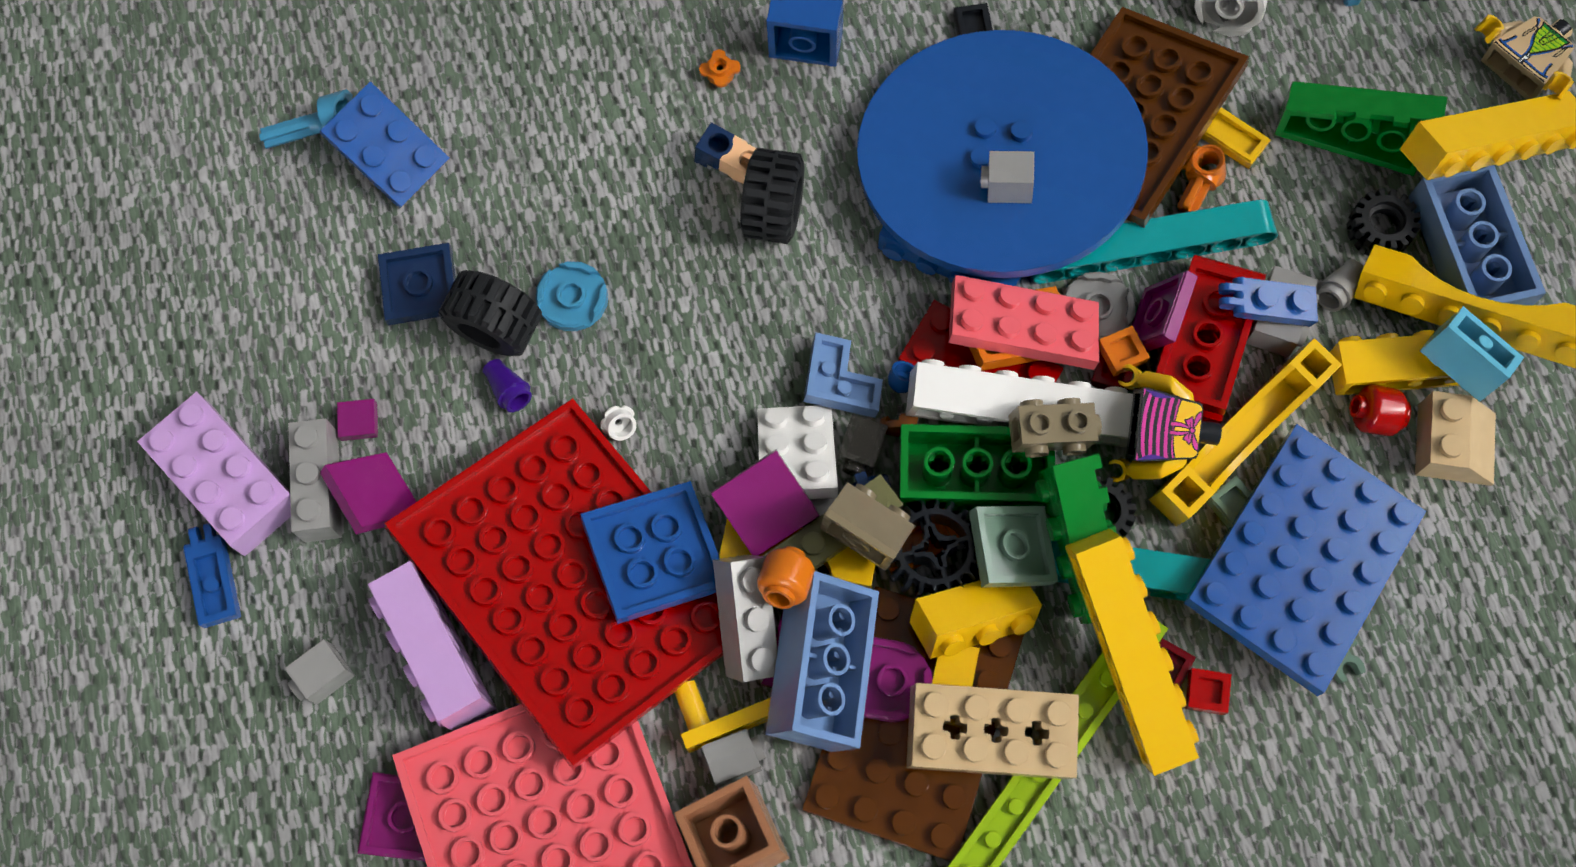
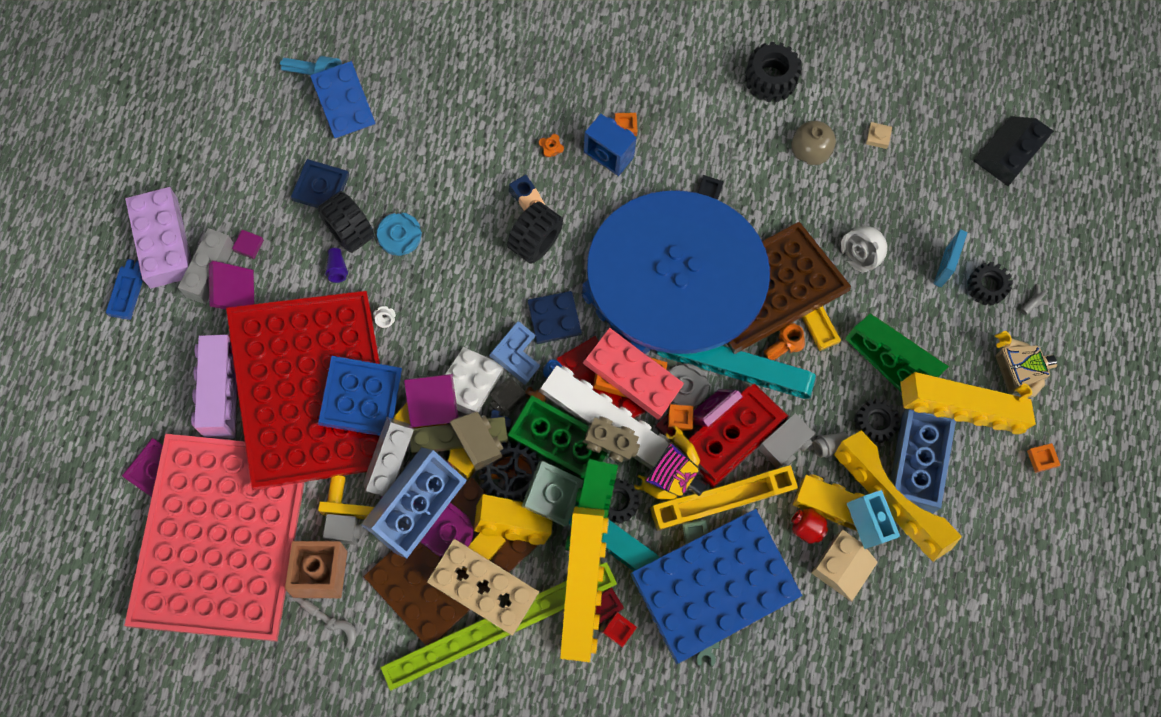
camera: 20 degrees right, 0 degrees up
(318, 673) = (153, 370): light grey brick -> none
(785, 577) = (415, 445): orange head -> none
(861, 303) = (554, 317): none -> dark blue plate
(1009, 176) = (669, 287): light grey brick -> none
(1270, 301) = (777, 431): hinge -> none

